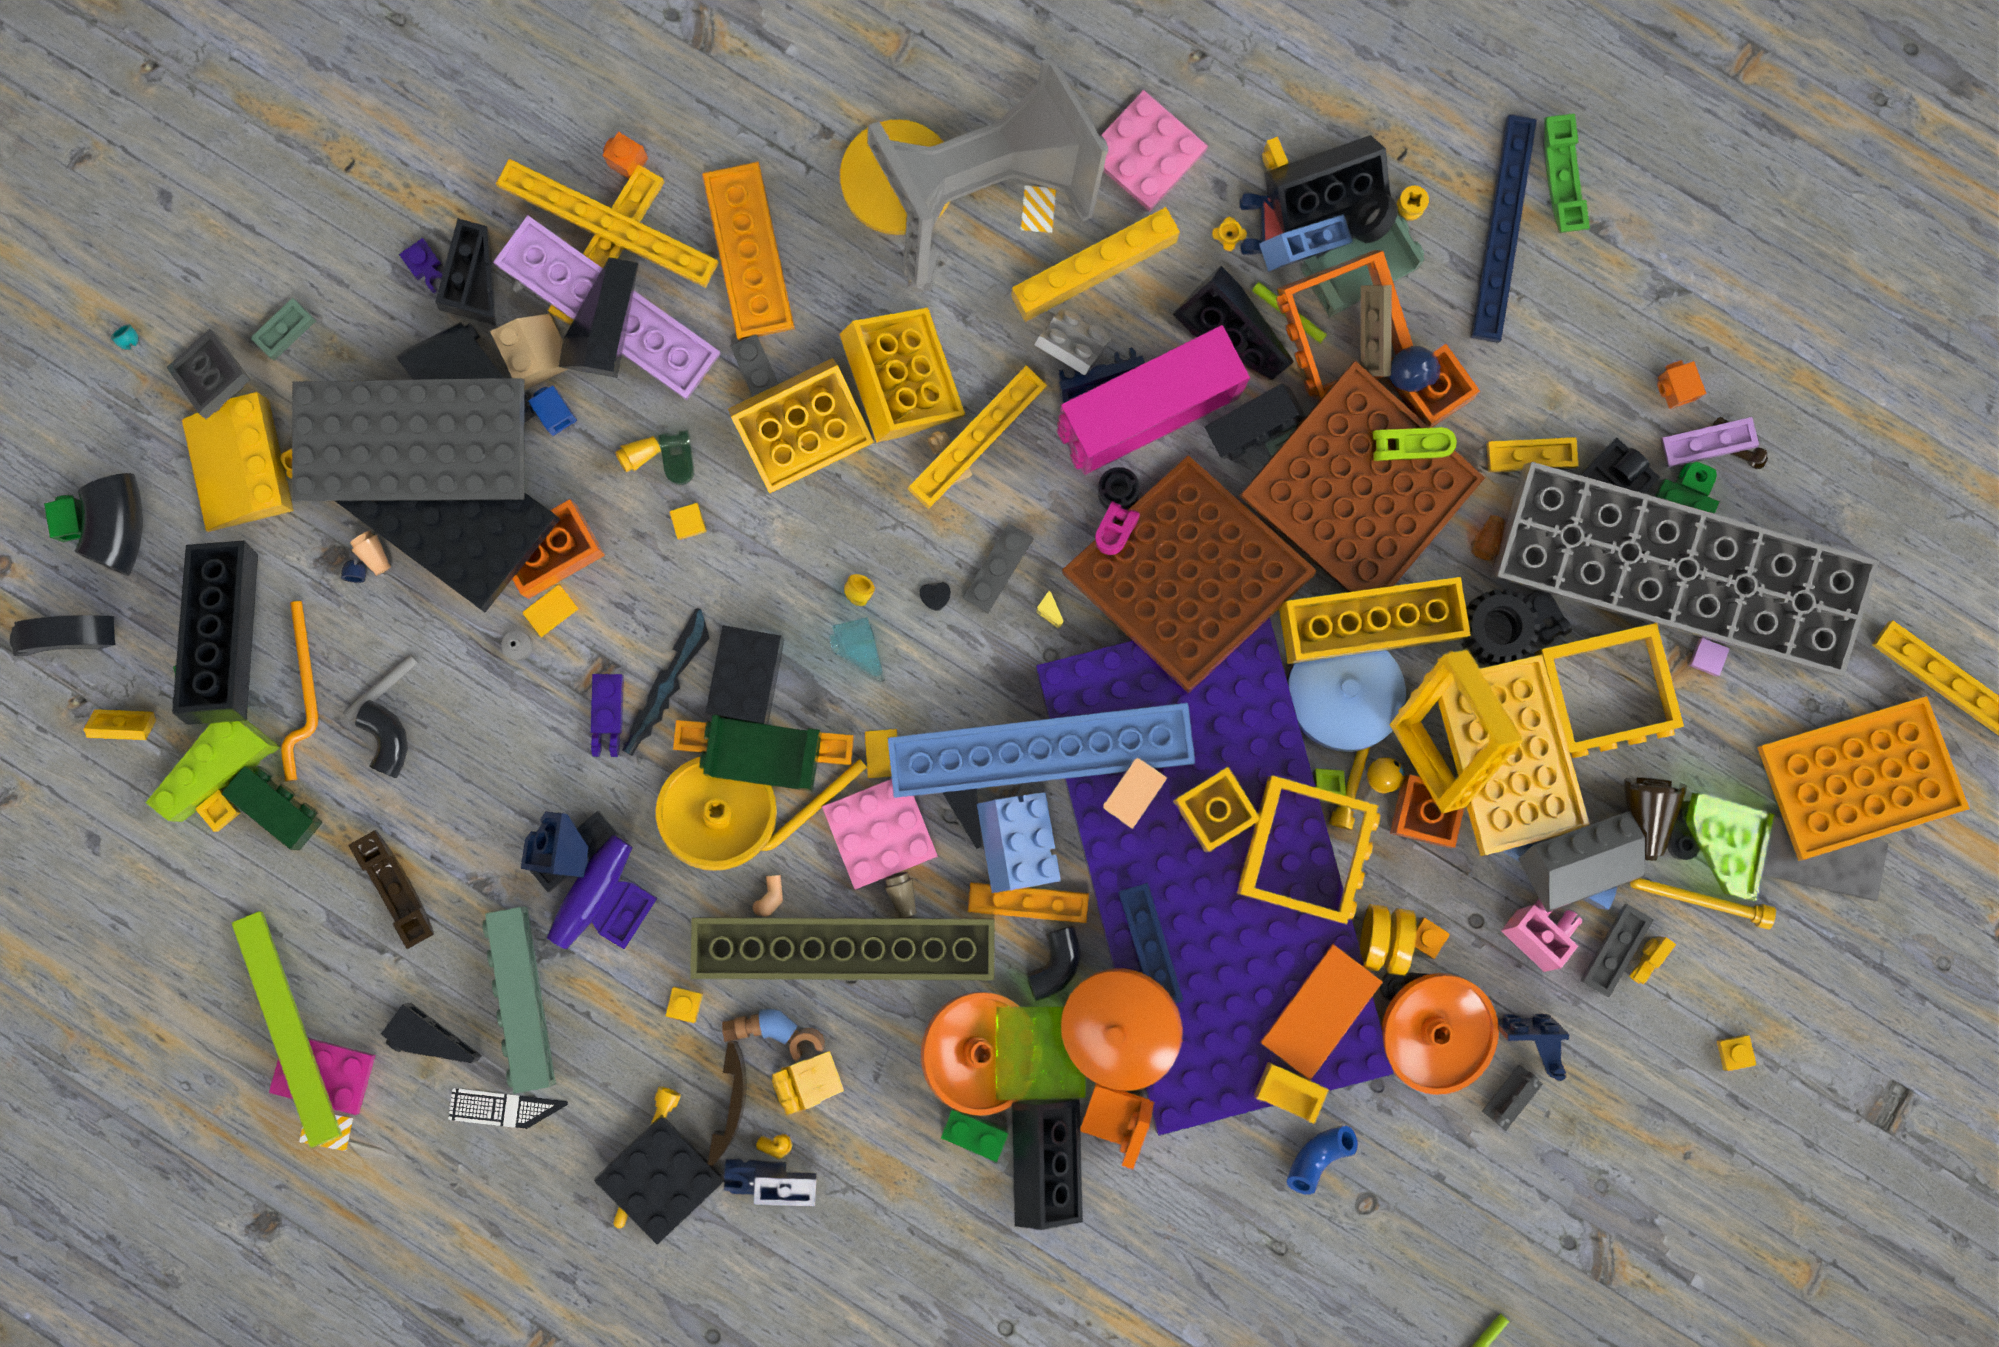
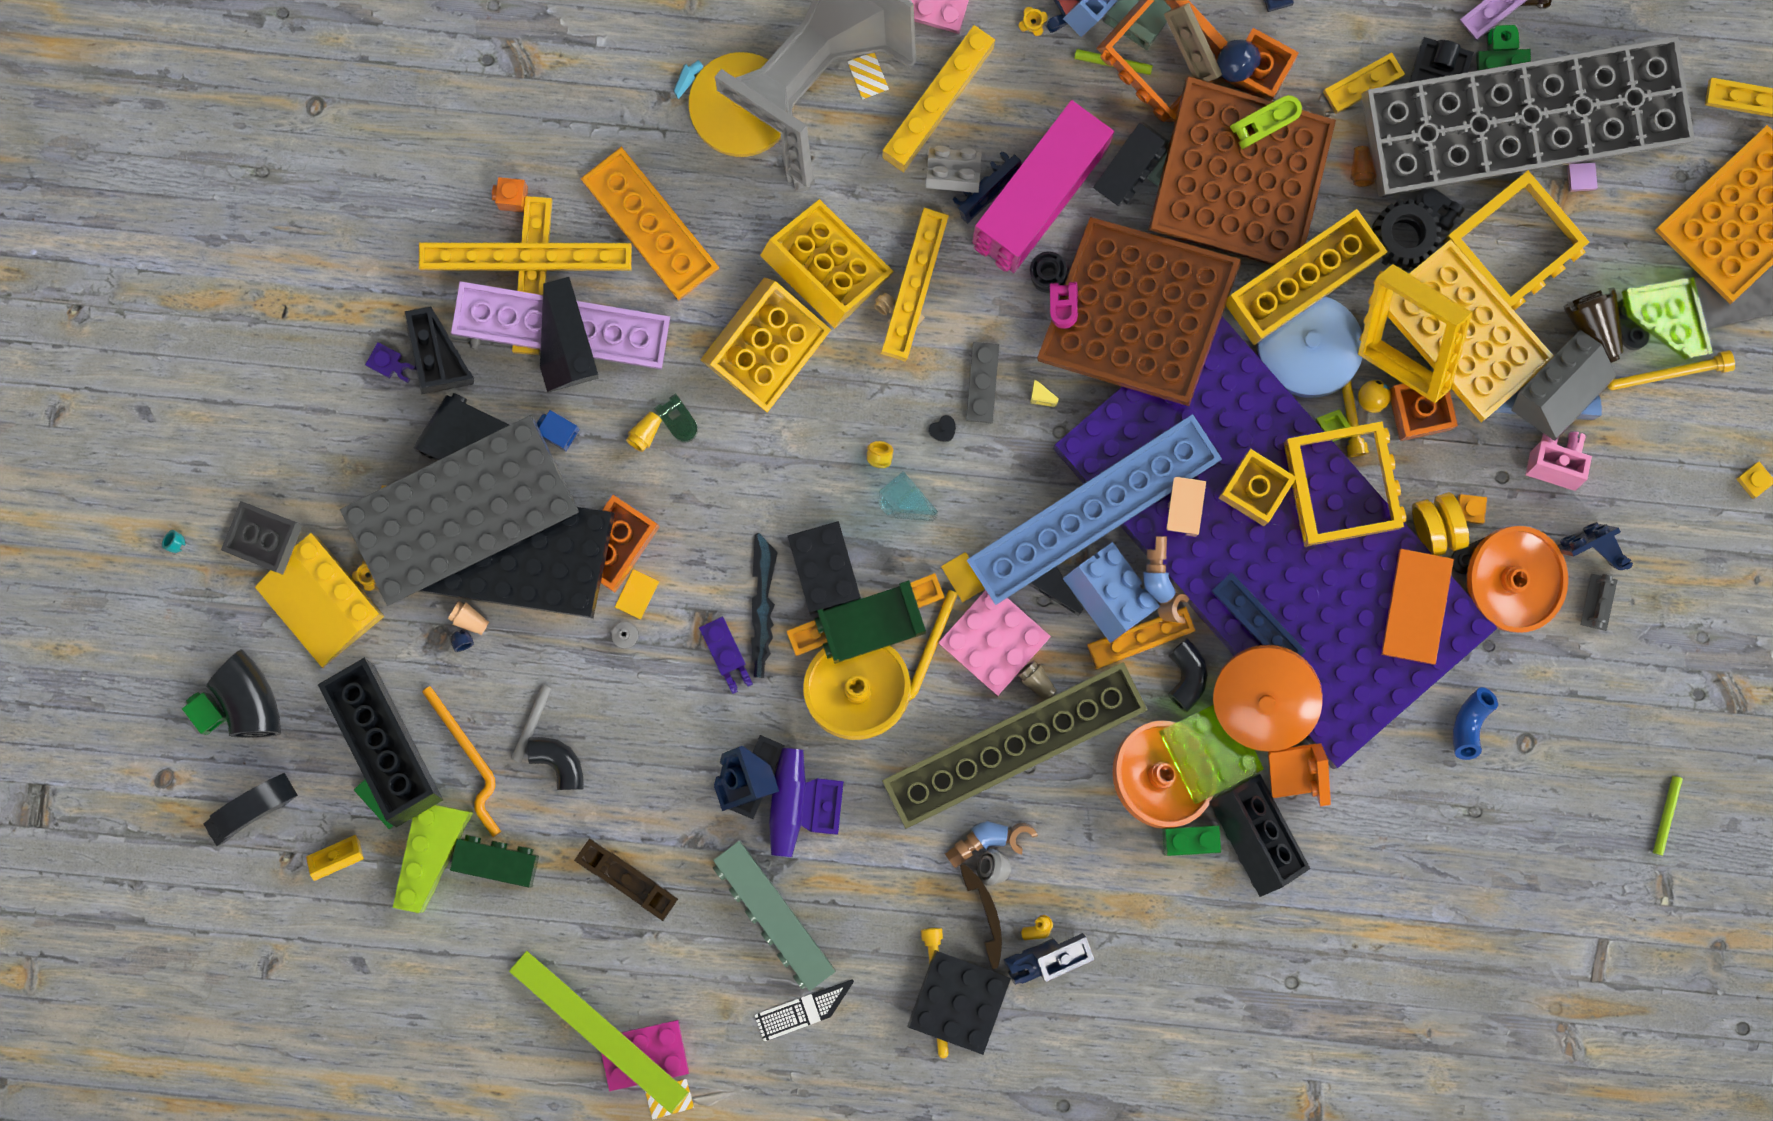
camera: 30 degrees left, 0 degrees up
(217, 811) = (450, 887): yellow plate -> none
(283, 329) = (301, 472): sand green plate -> none
(420, 1034) = (709, 984): black slope -> none
(530, 348) = (514, 388): tan slope -> none
(684, 1004) = (907, 855): yellow plate -> none
(688, 521) = (712, 467): yellow tile -> none
(754, 365) = (702, 314): dark grey plate -> none
(761, 1060) = (993, 867): none -> light grey cone
(772, 899) = (935, 736): light nougat arm -> none
(806, 1083) = (1037, 867): yellow piece -> none
(857, 125) = (687, 77): none -> medium azure bar
(1069, 860) = (1158, 583): none -> medium nougat piece
(1224, 302) = (1057, 82): black wedge -> none
(1291, 1092) = (1425, 681): yellow panel -> none
(1616, 950) = (1623, 445): dark grey plate -> none
(1654, 954) = (1654, 433): yellow plate -> none

